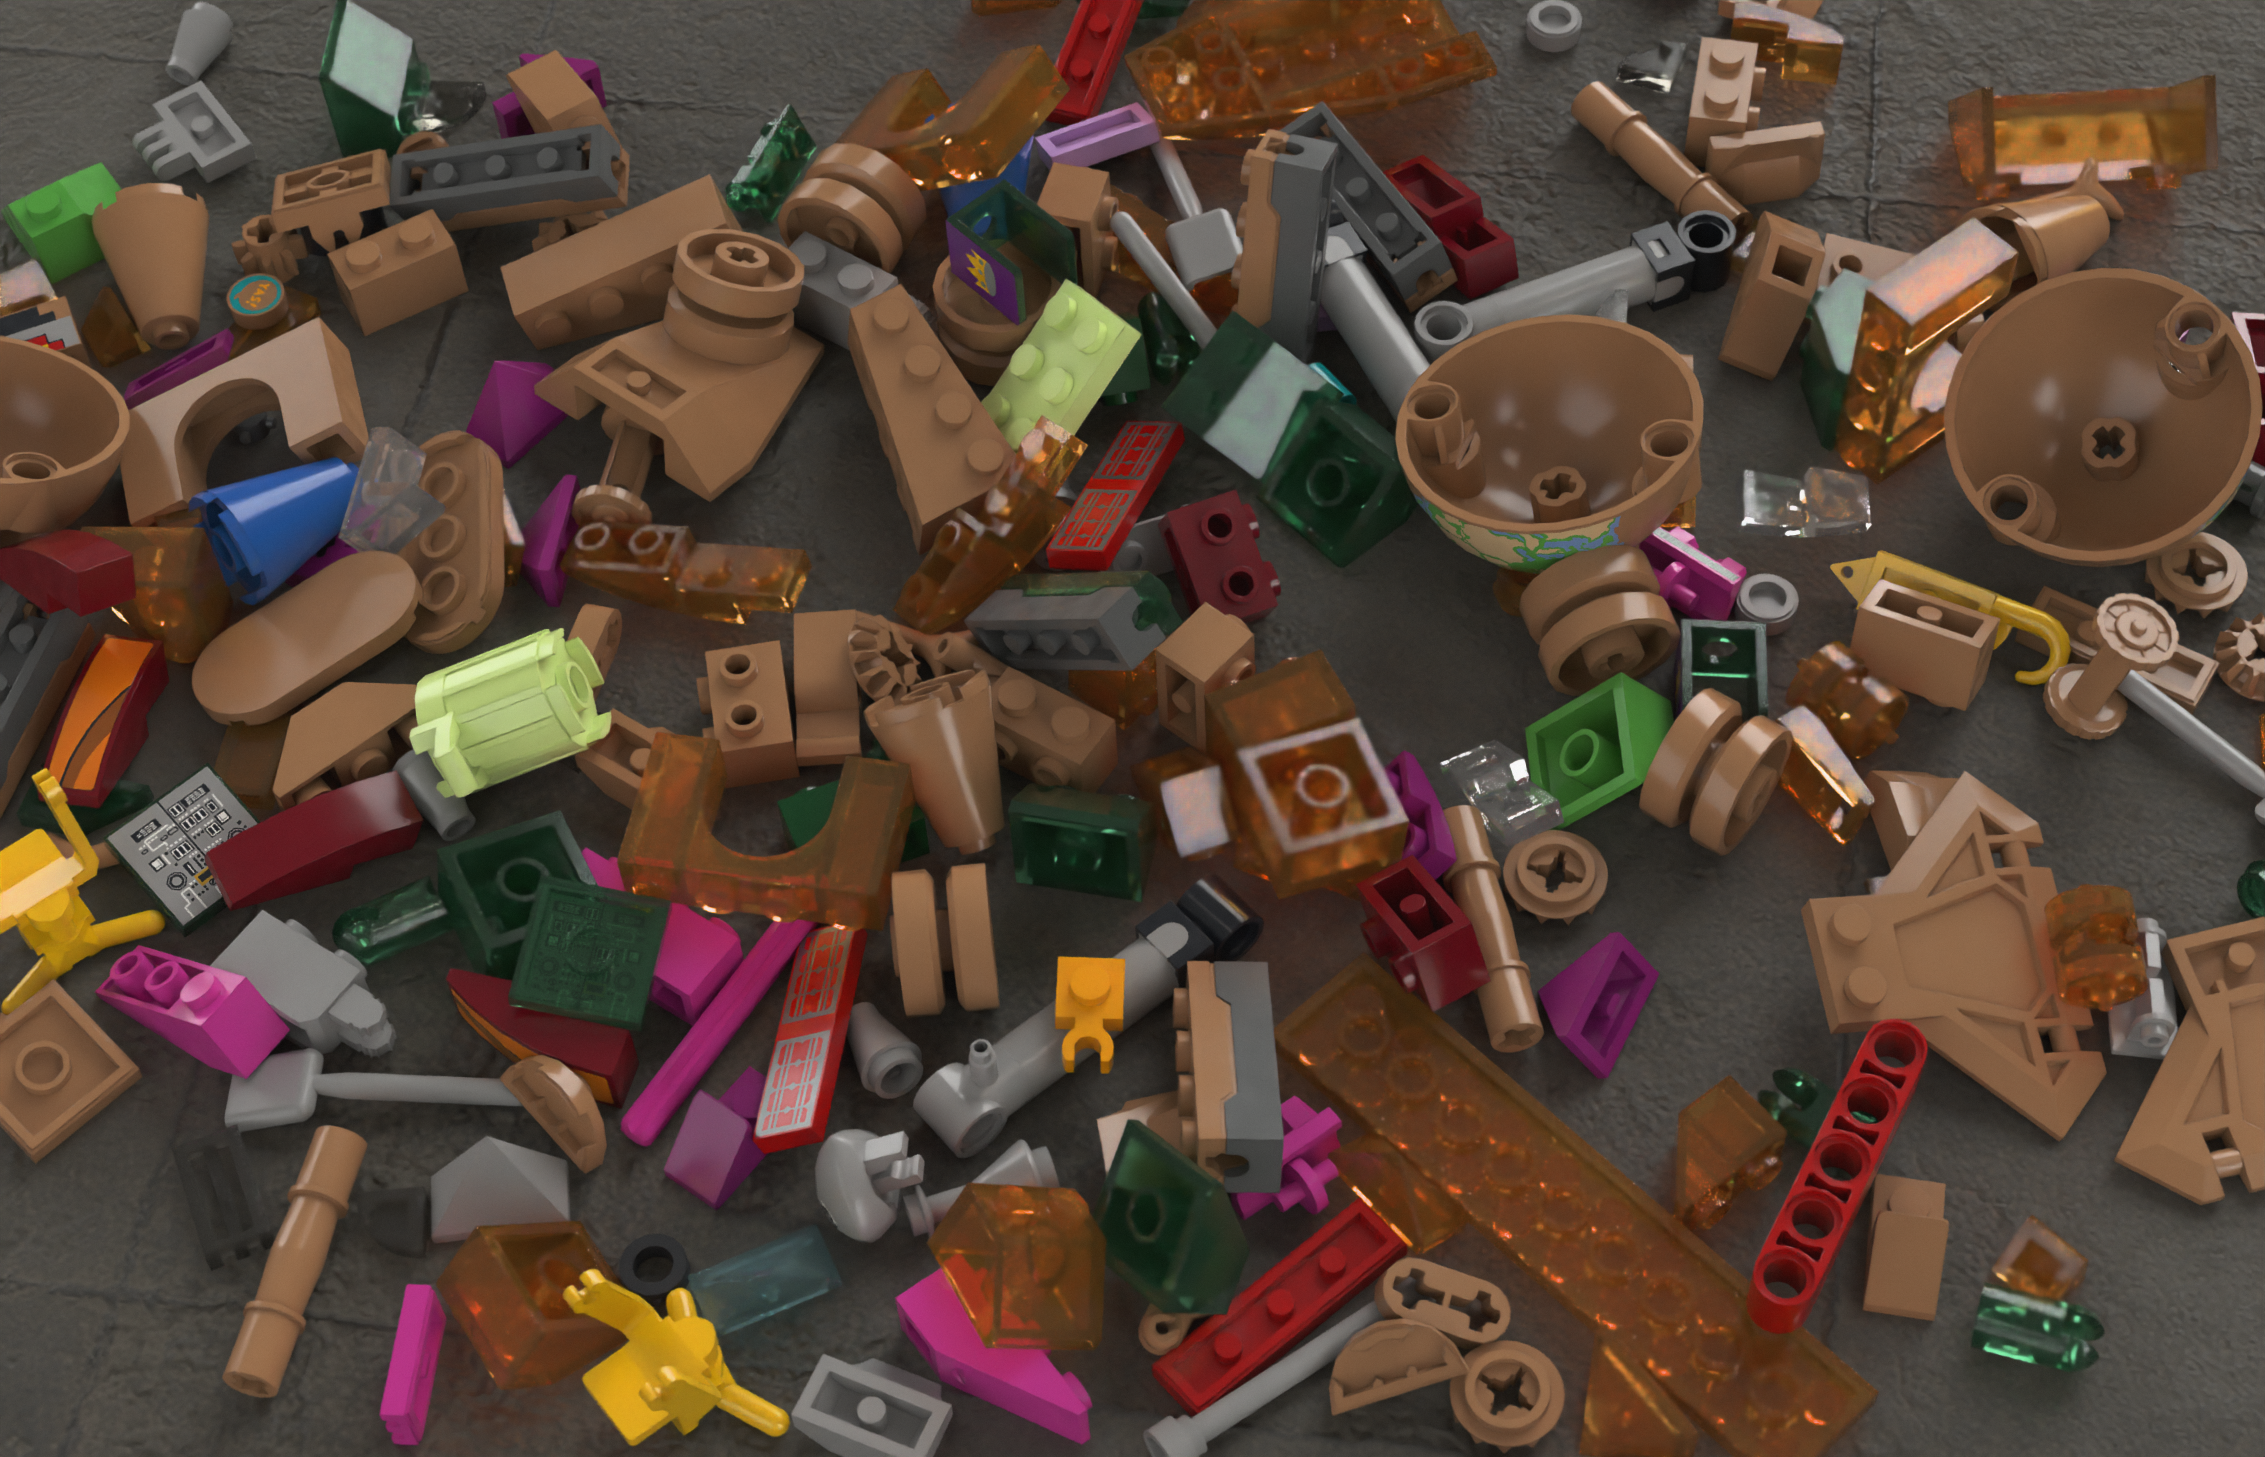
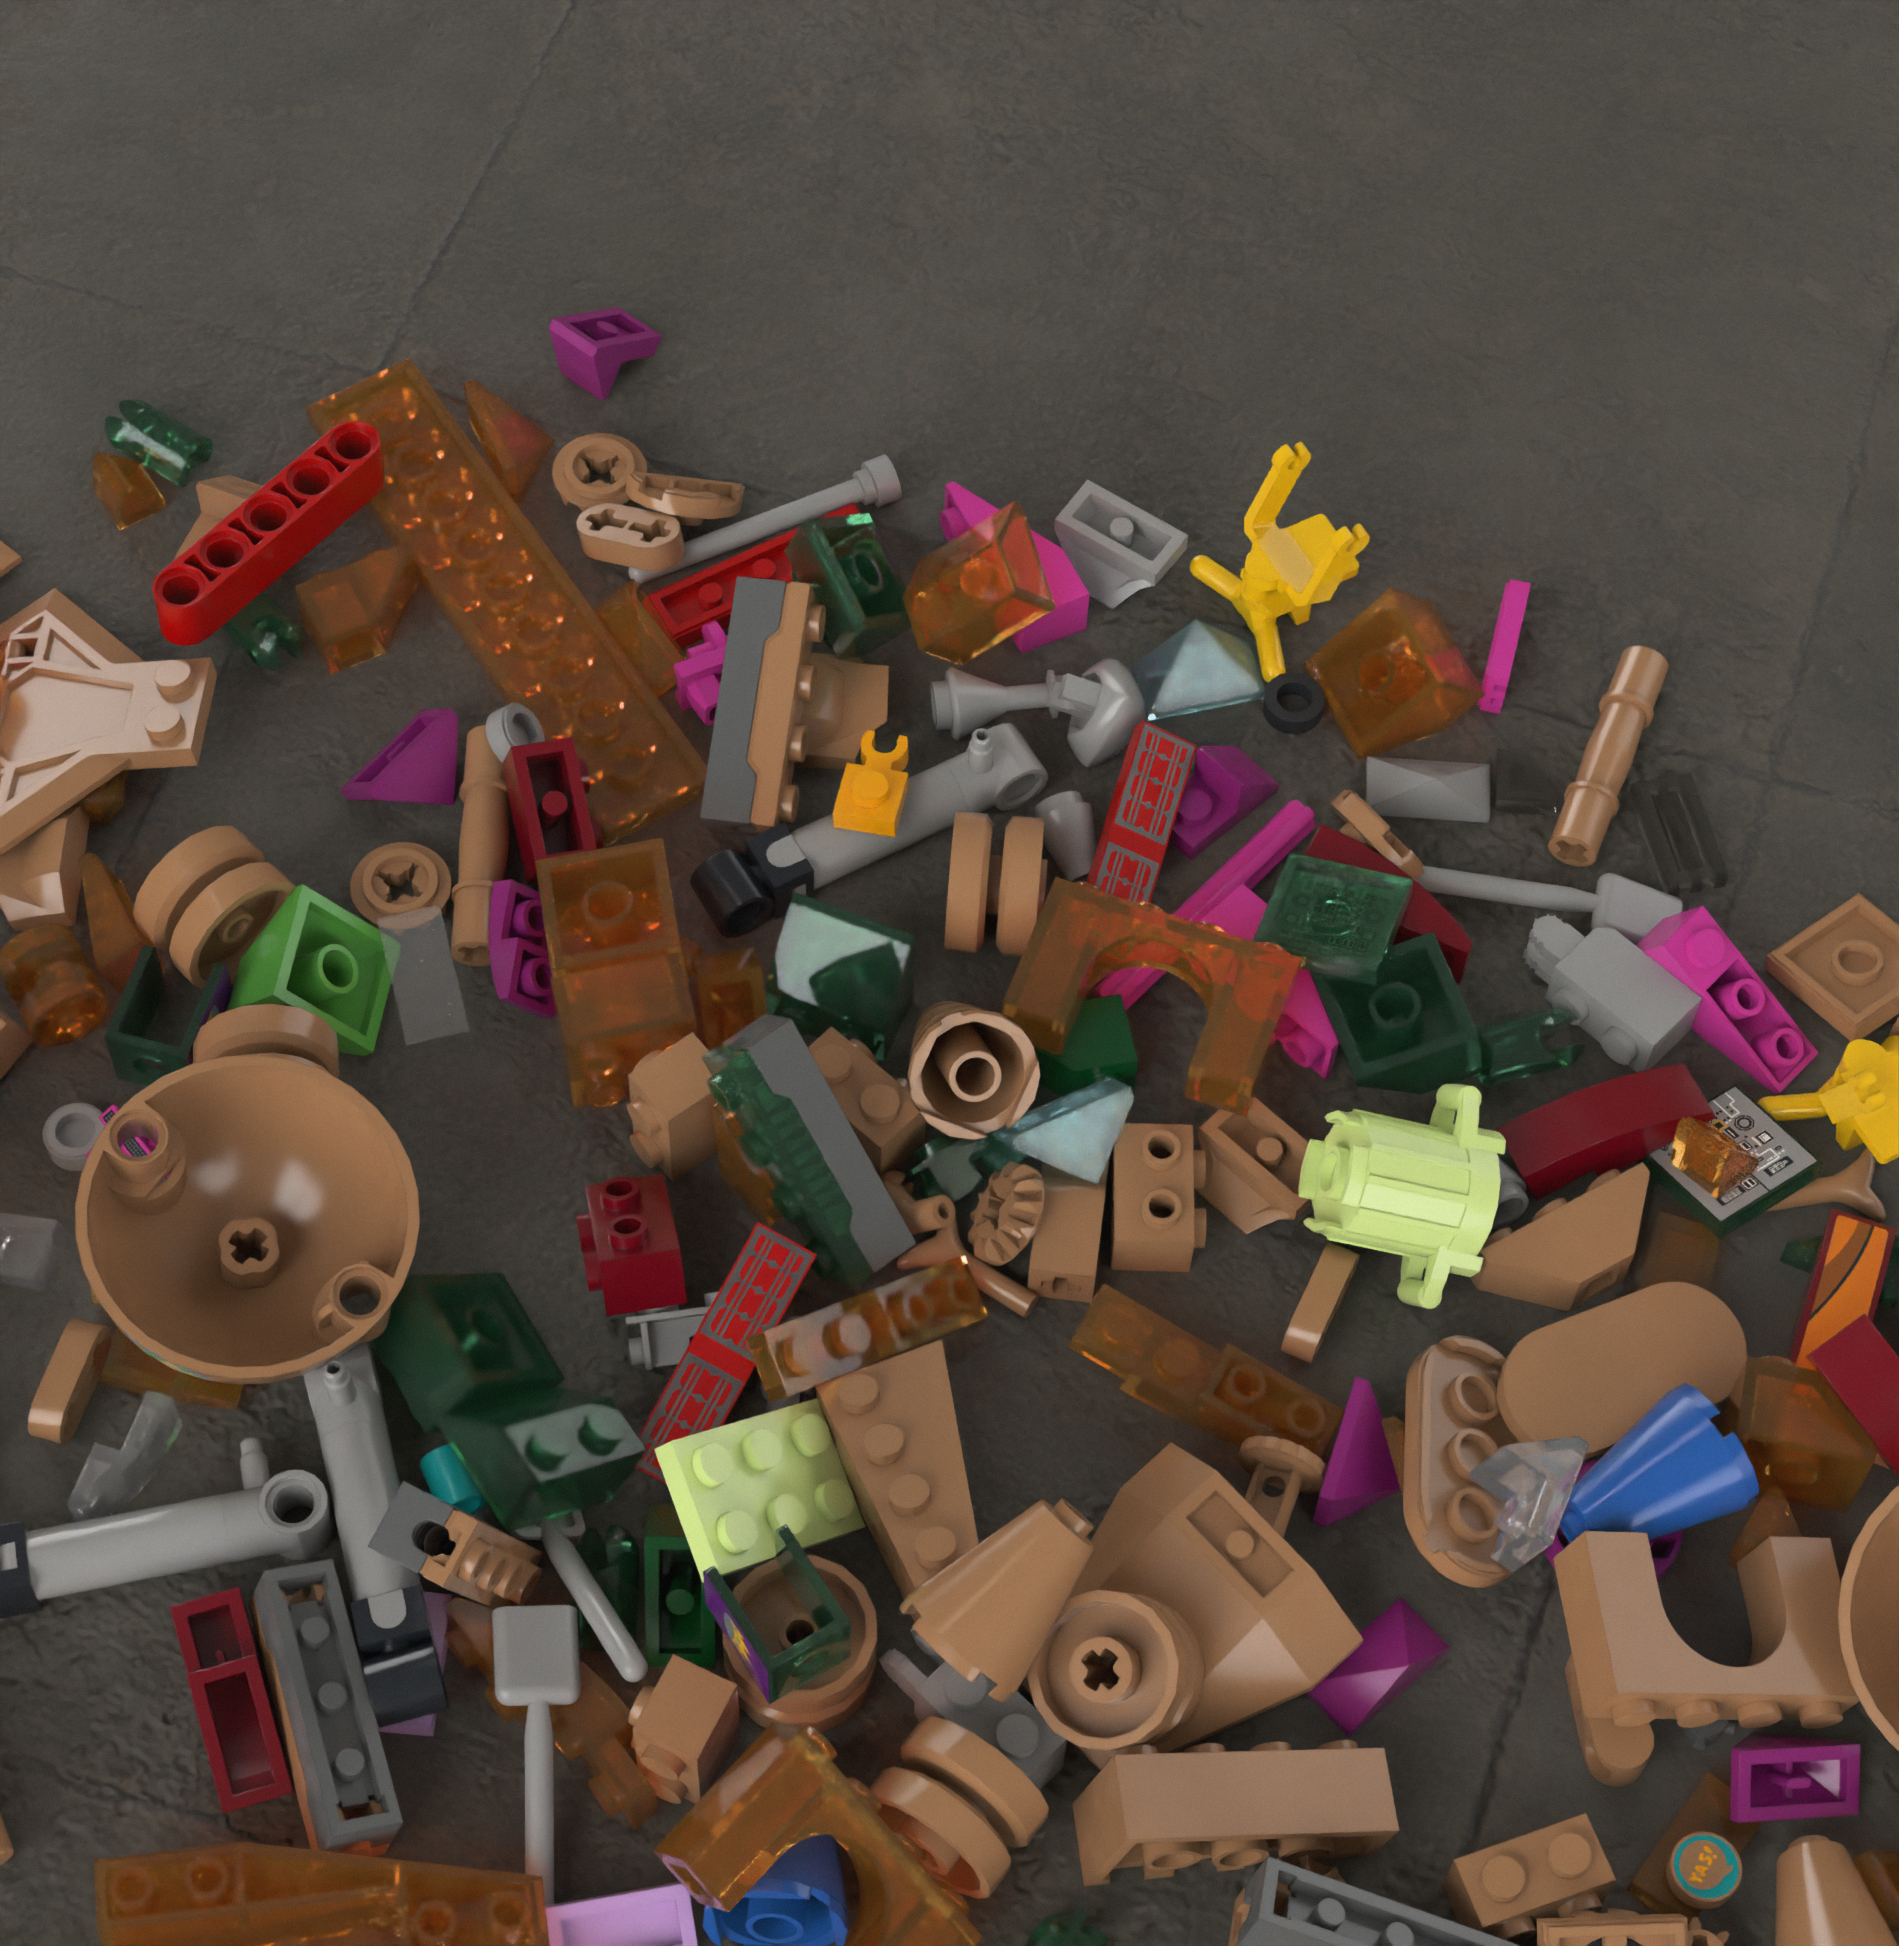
camera: 175 degrees left, 5 degrees up
(203, 819) = (1710, 1156): none -> clear orange slope
(830, 726) = (1075, 1129): none -> clear light blue slope
(834, 258) = (1004, 1595): none -> medium nougat cone
(1487, 1017) = (512, 727): none -> light grey tile

